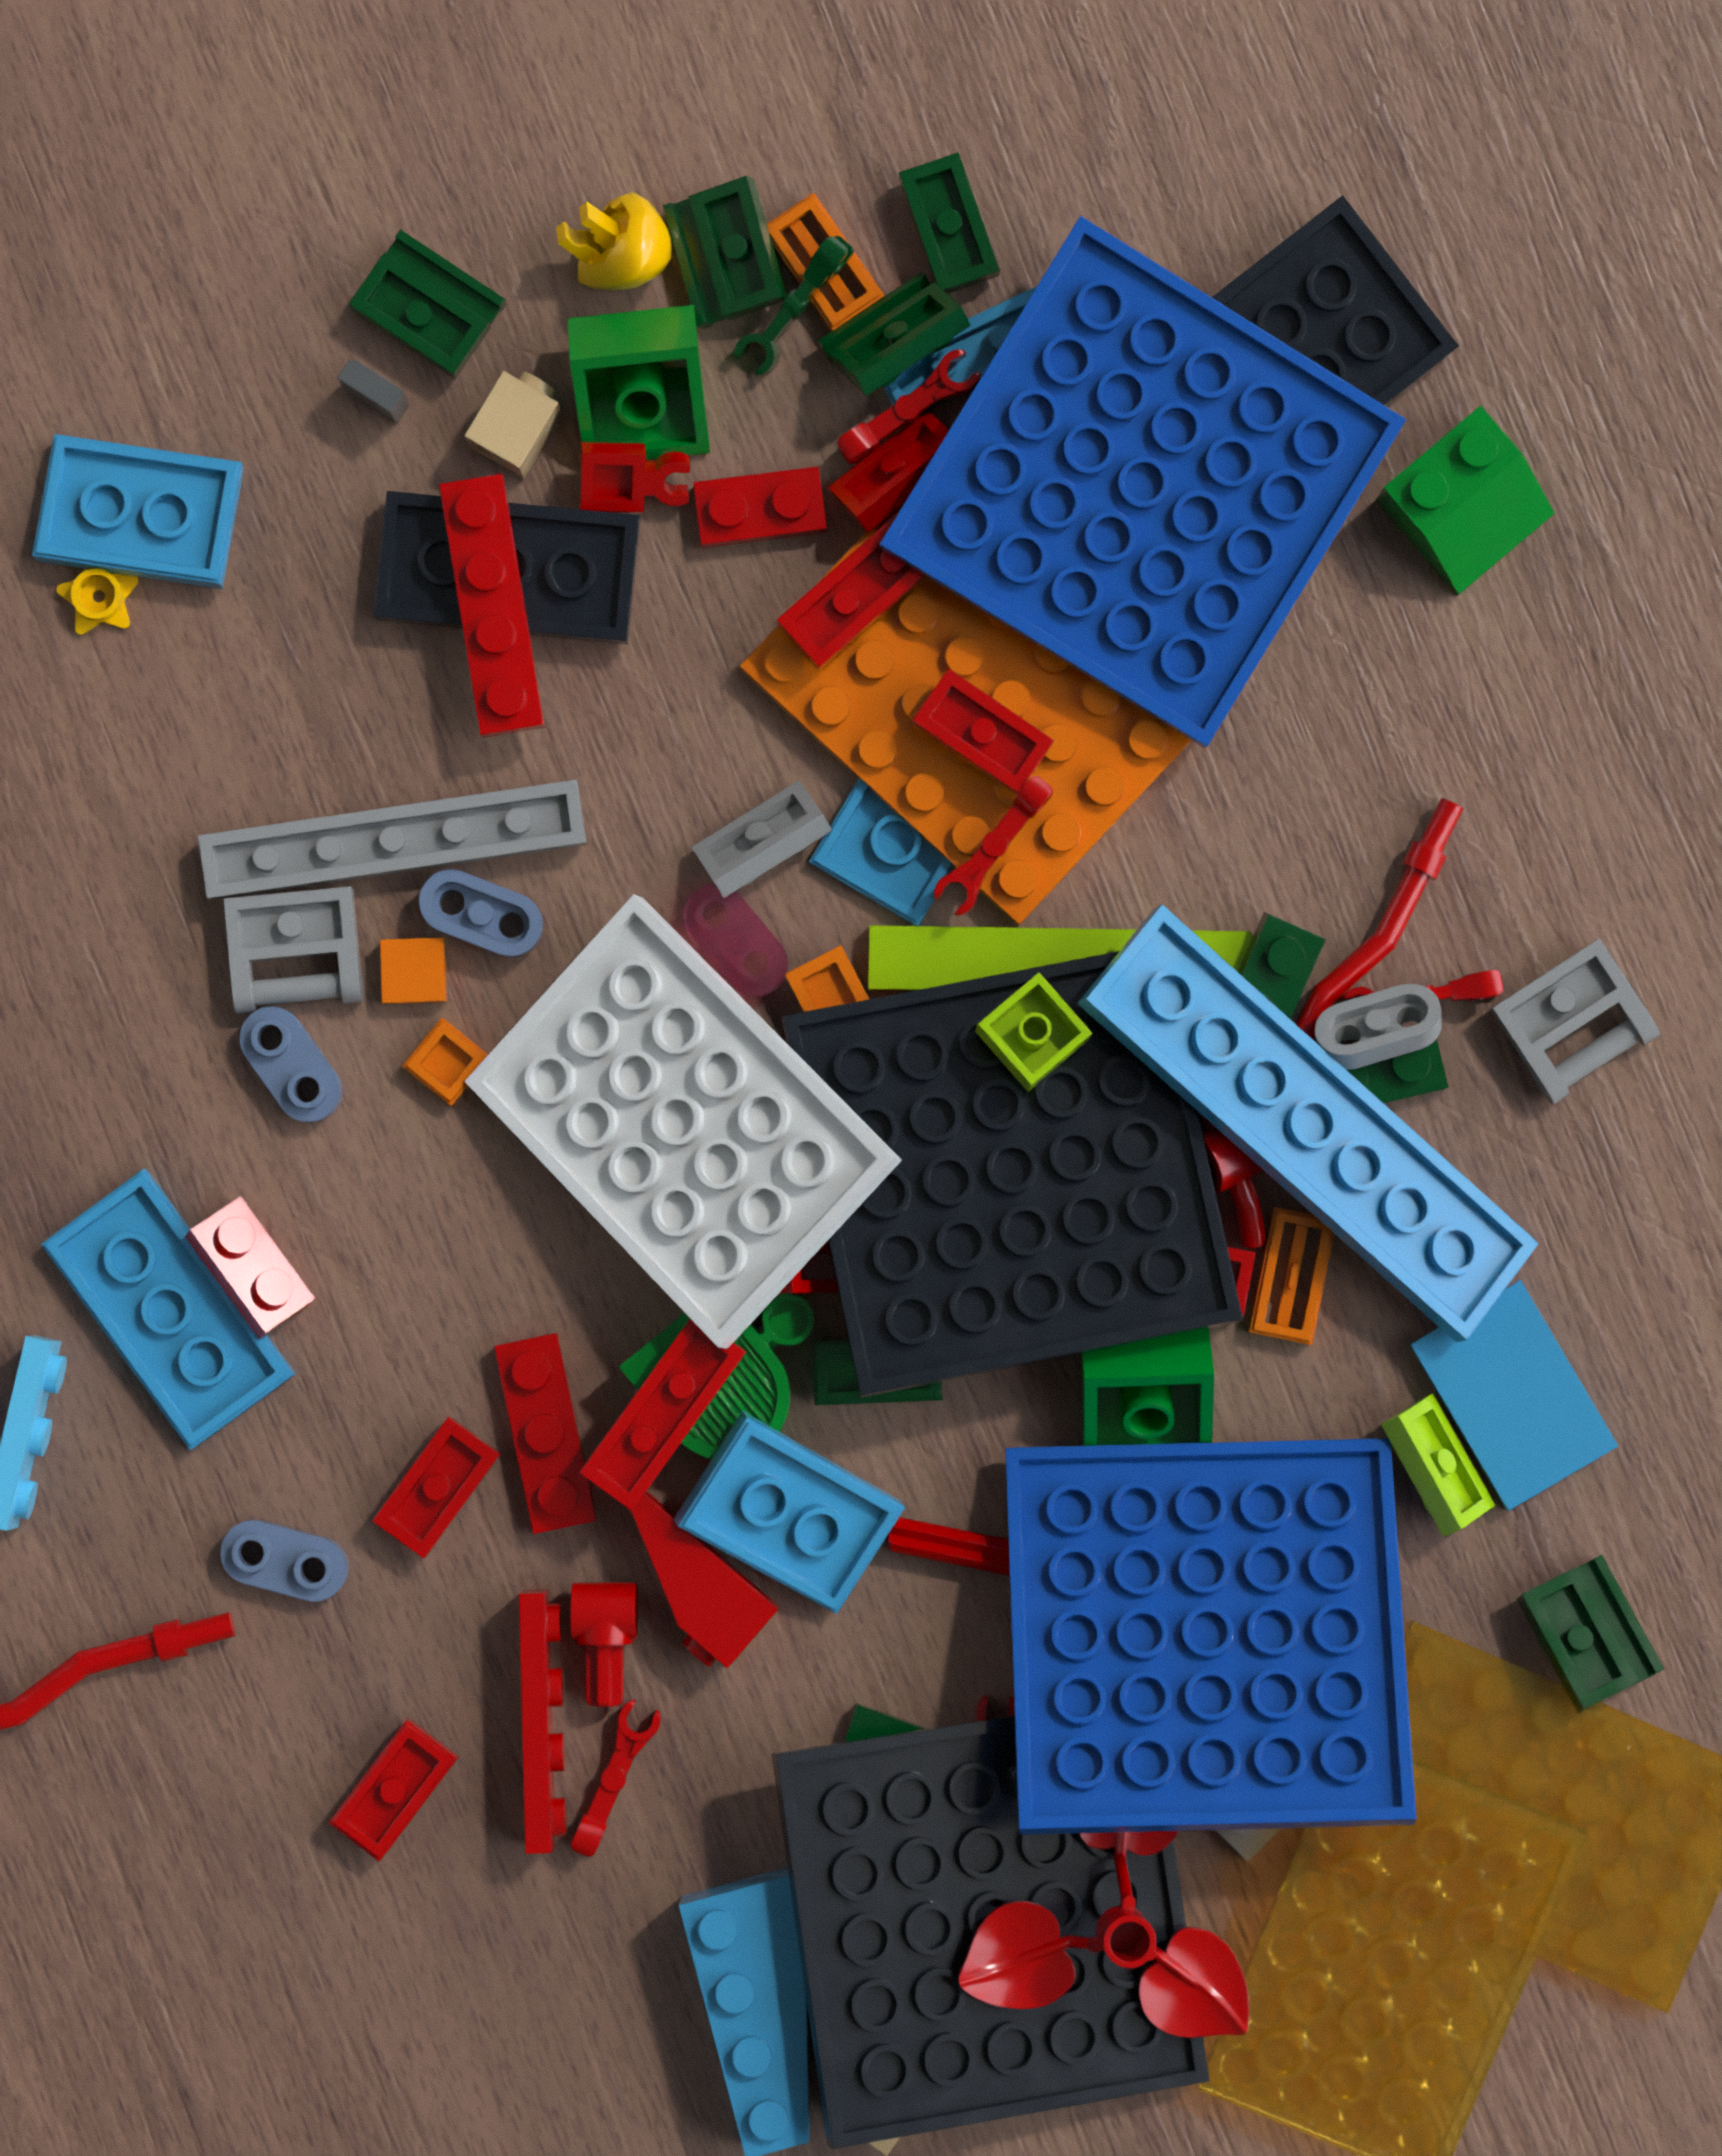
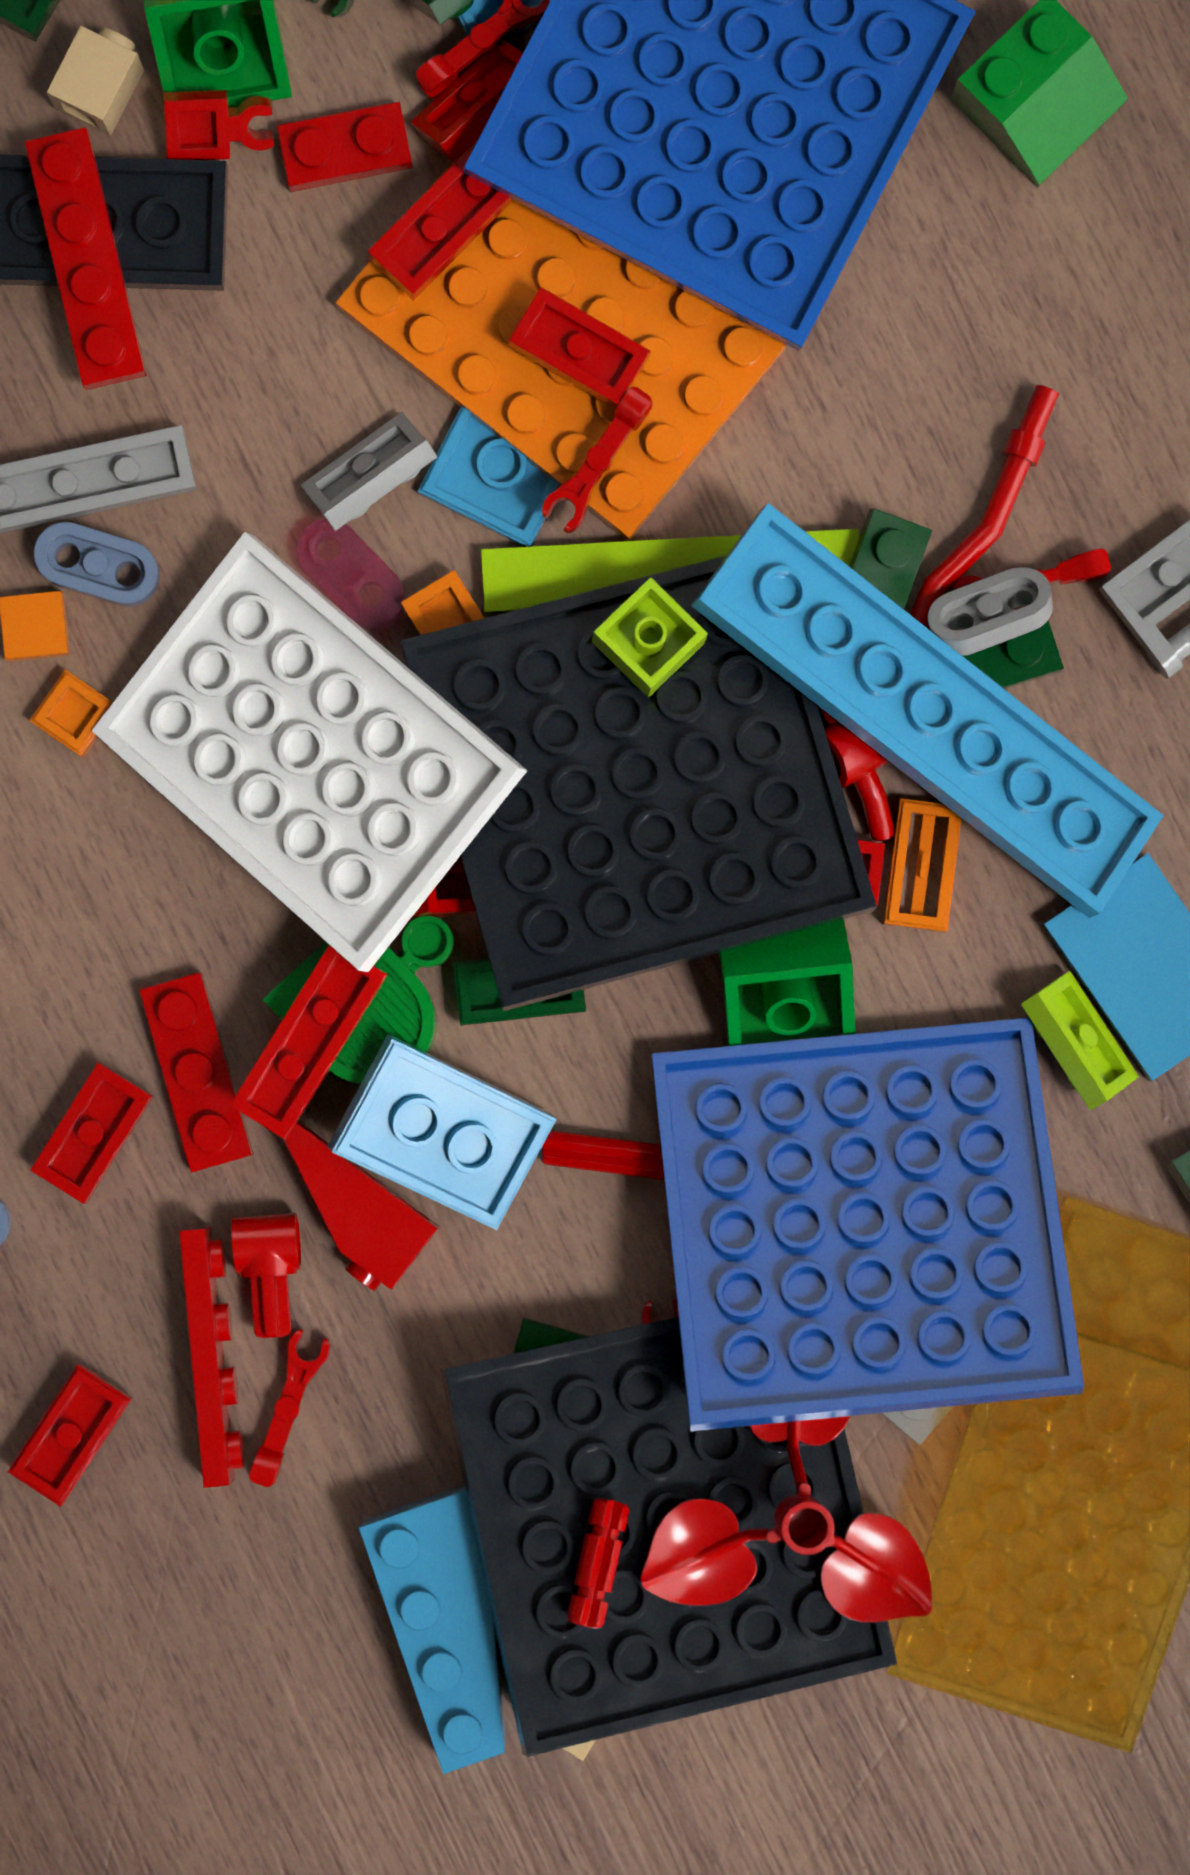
camera: 10 degrees left, 0 degrees up
(916, 1959) = (598, 1563): none -> red axle

